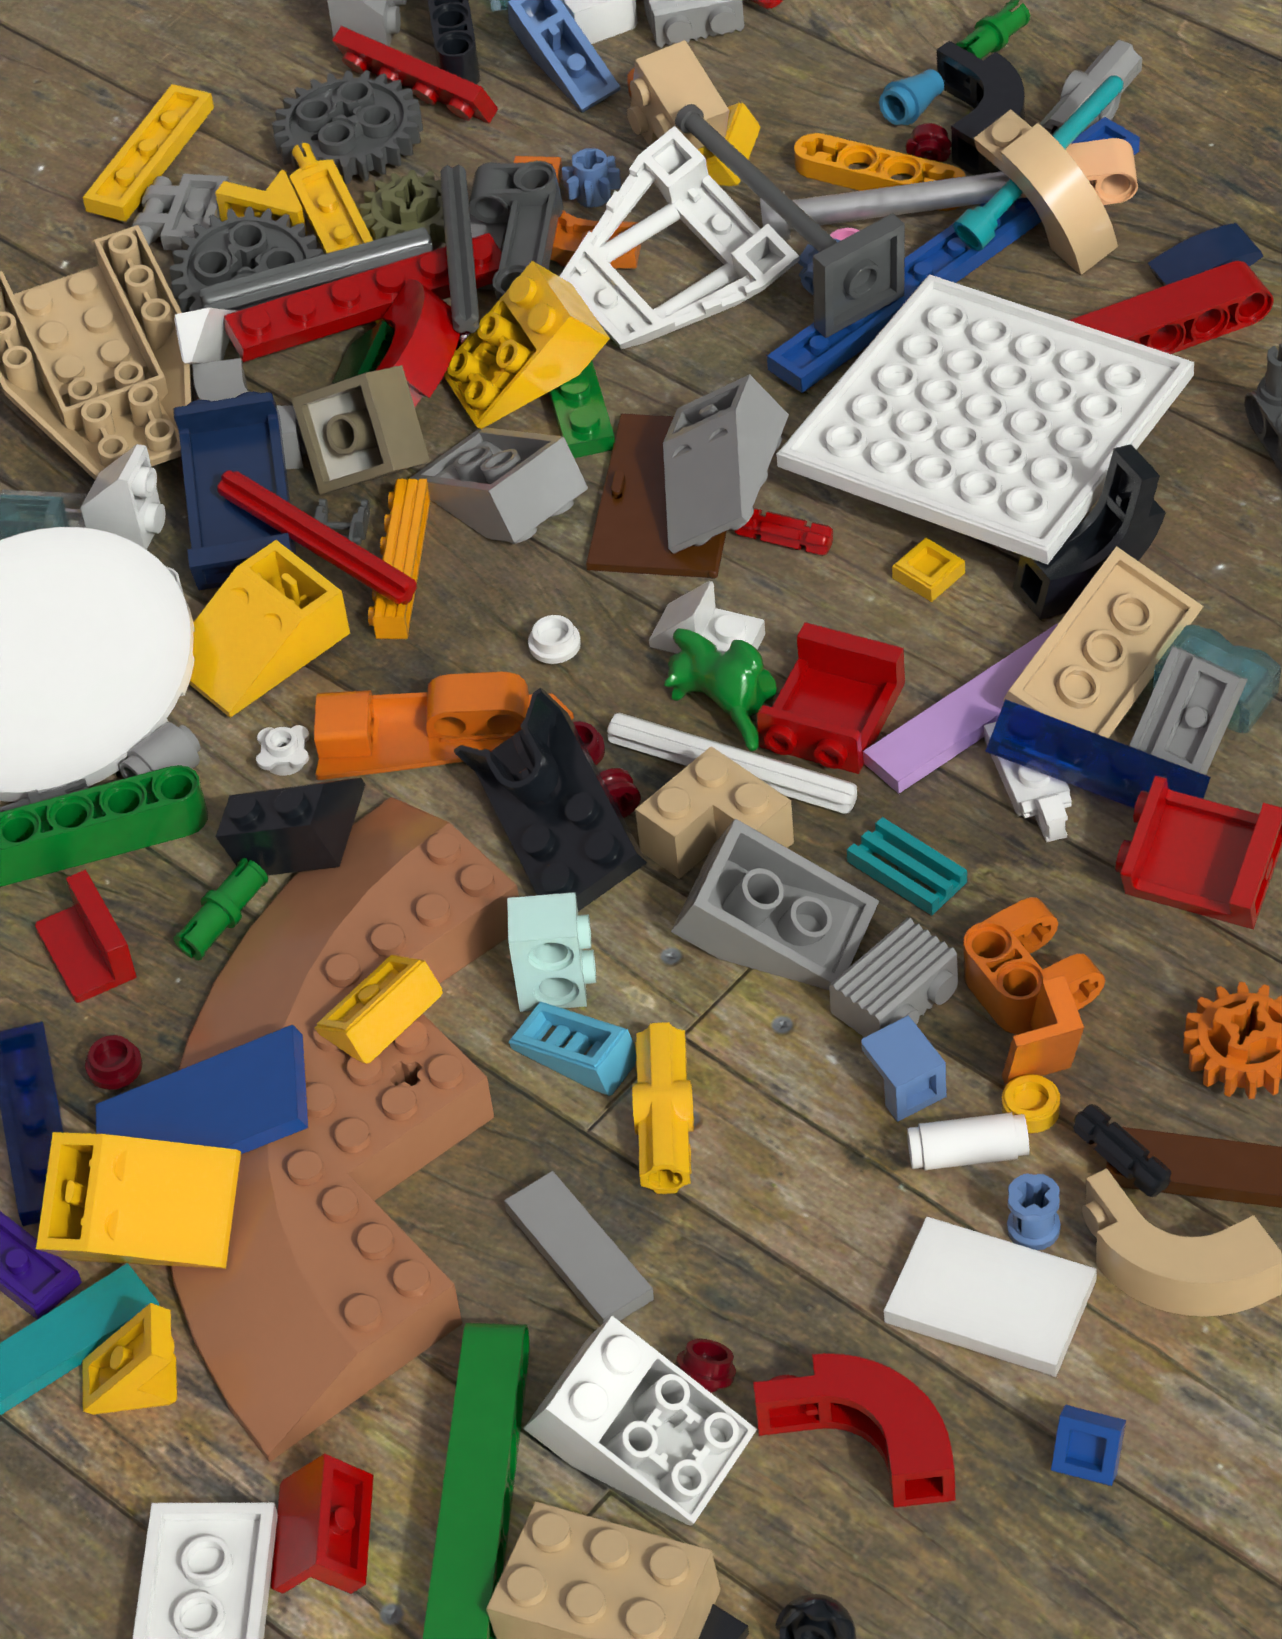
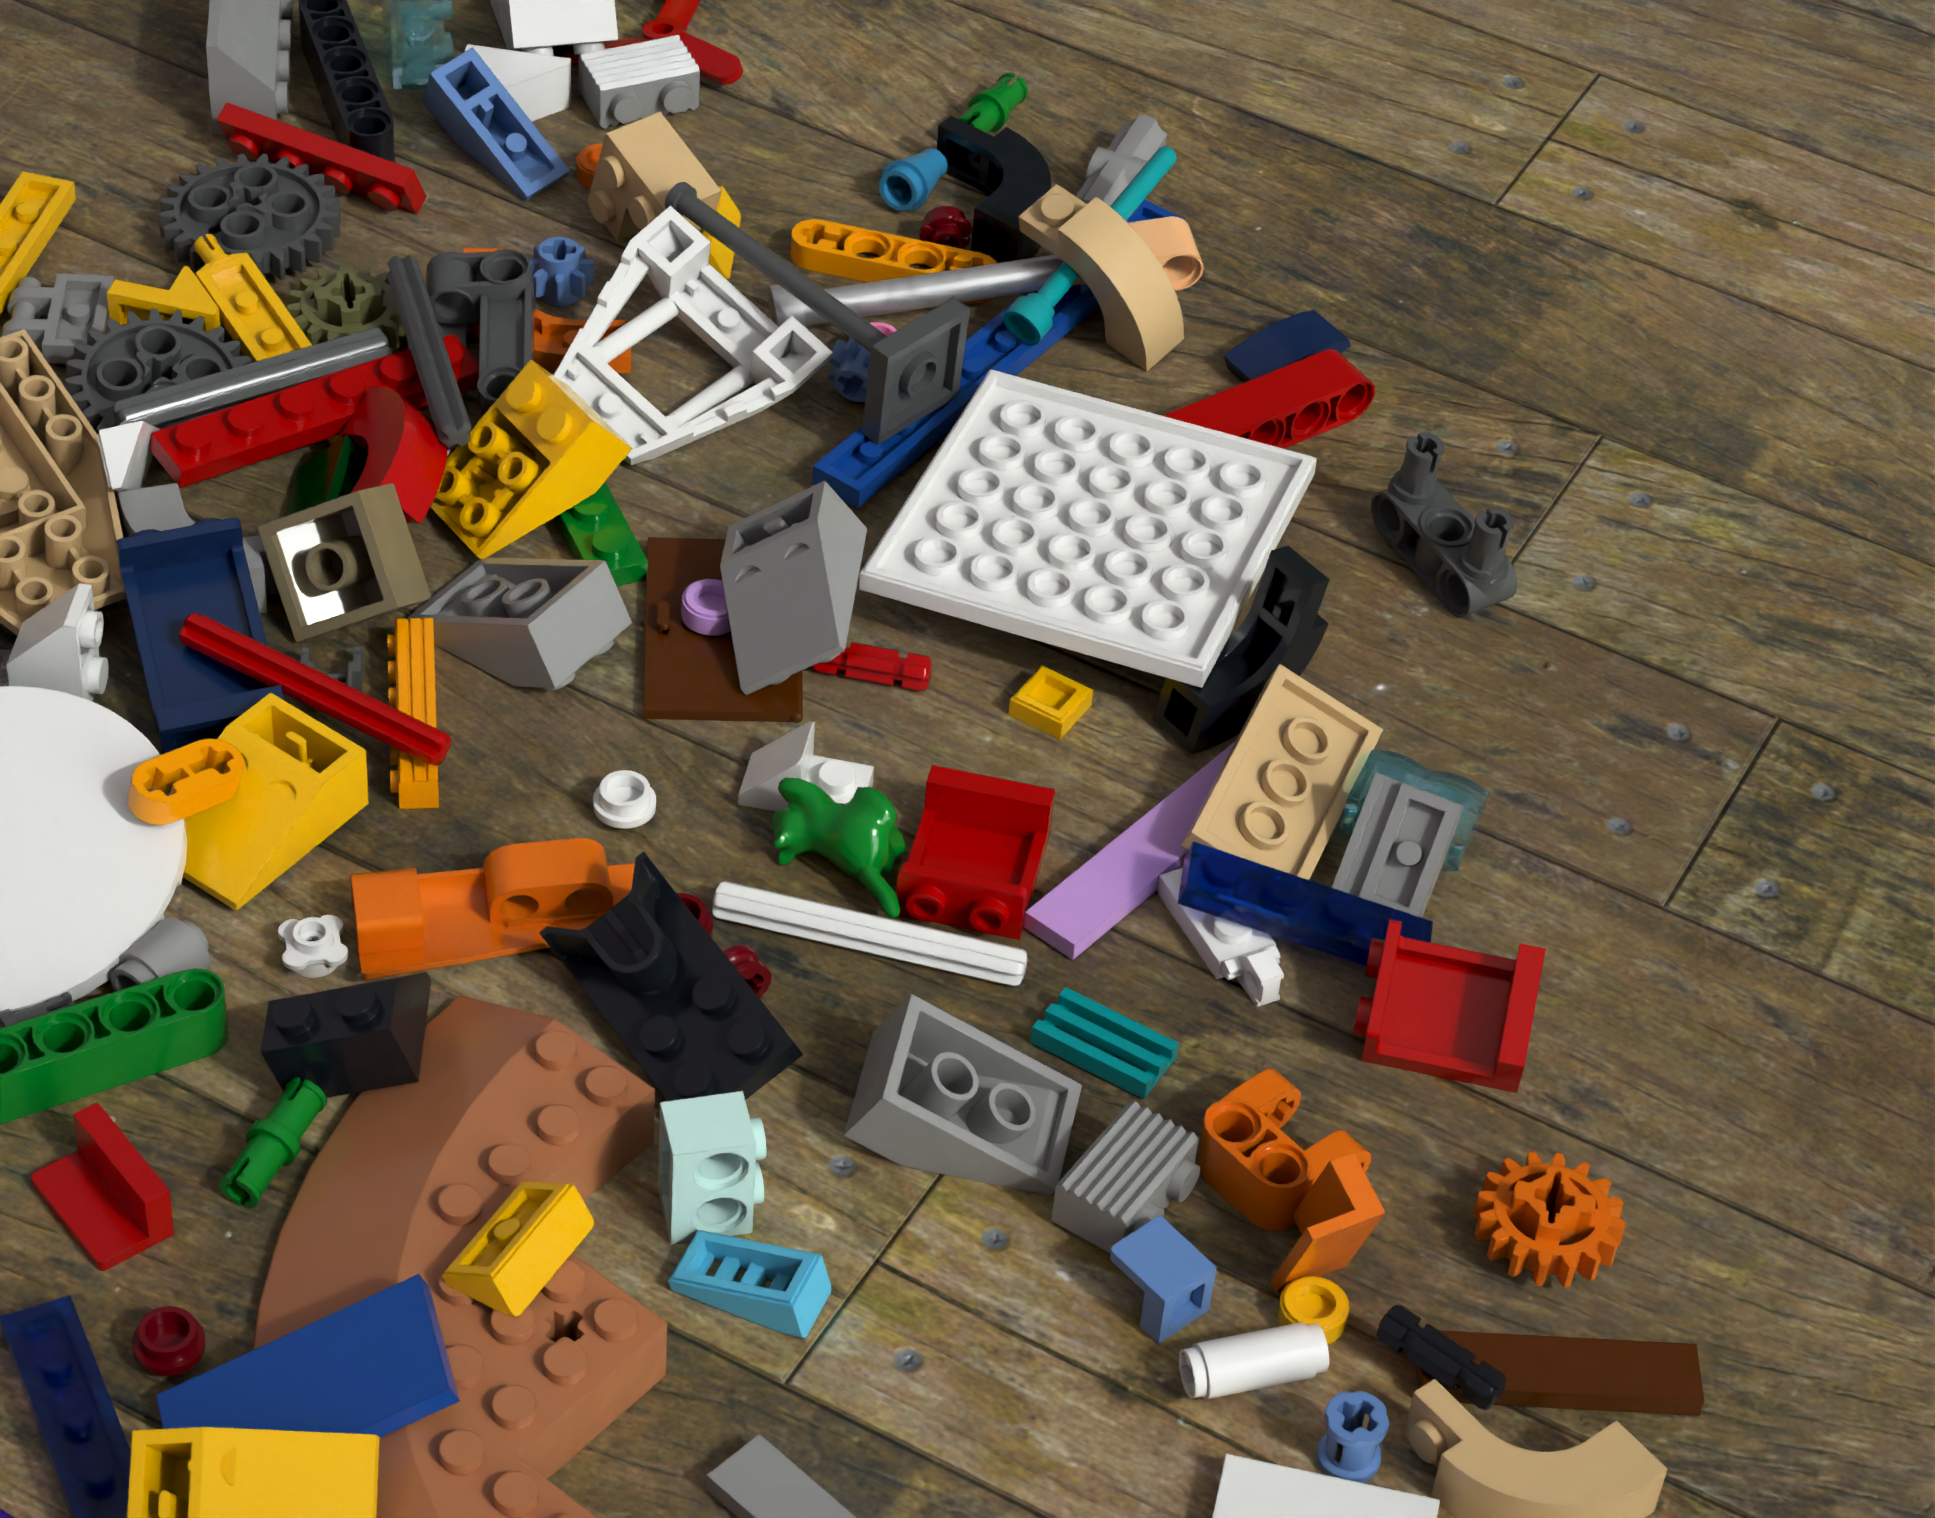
camera: 20 degrees left, 5 degrees down
(193, 610) = (189, 788): none -> light orange beam
(650, 477) = (705, 608): none -> lavender tile
(663, 1108) = (880, 1348): yellow piece -> none
(698, 806) = (858, 985): tan brick -> none

